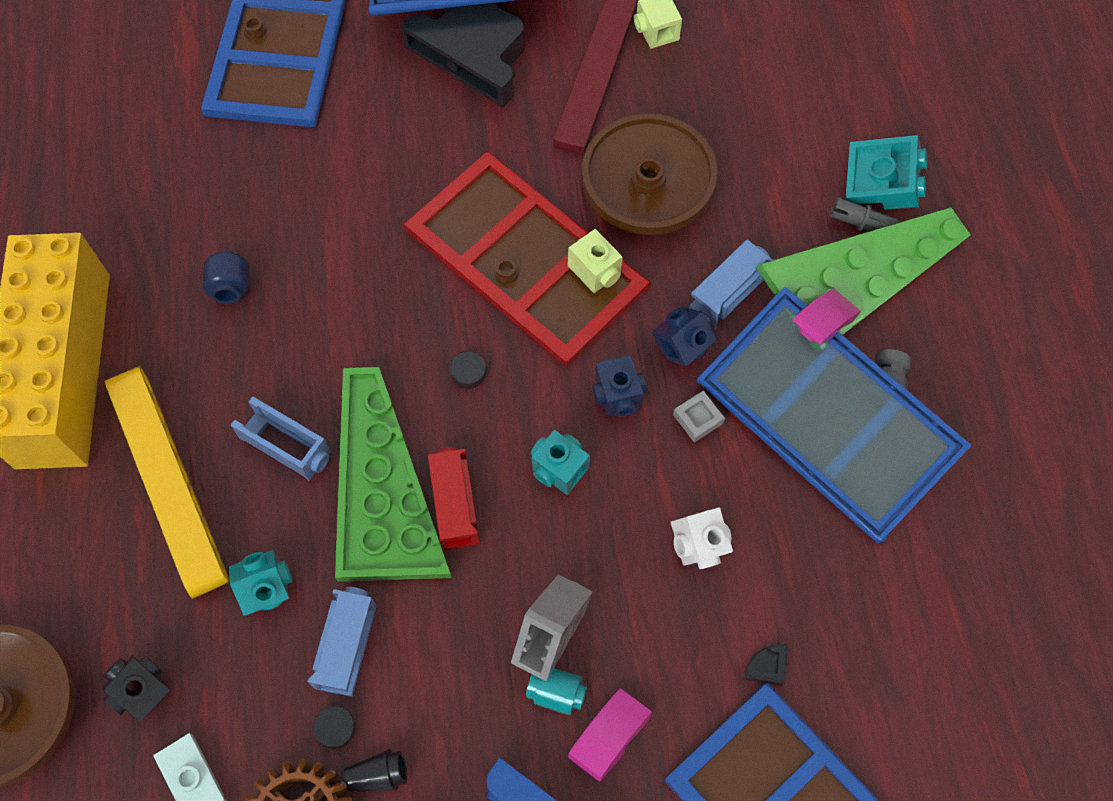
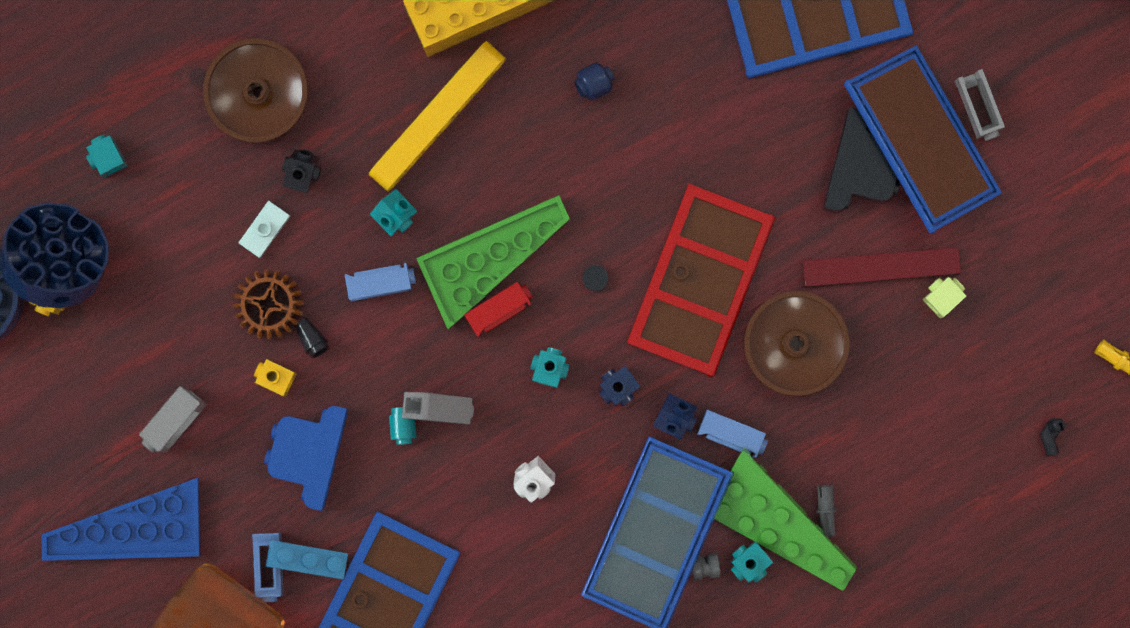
camera: 70 degrees right, 20 degrees up
(264, 415) = (488, 206): medium blue window -> none
(334, 727) = (328, 300): black tile -> none
(595, 261) = (706, 334): yellowish green brick -> none
(609, 734) = (389, 468): dark pink slope -> none
(698, 416) = (621, 447): light grey plate -> none
(768, 665) = (472, 550): black tile -> none
(825, 316) = (717, 508): dark pink slope -> none
(887, 172) = (870, 514): teal plate -> none
(904, 316) = (760, 560): none -> teal brick

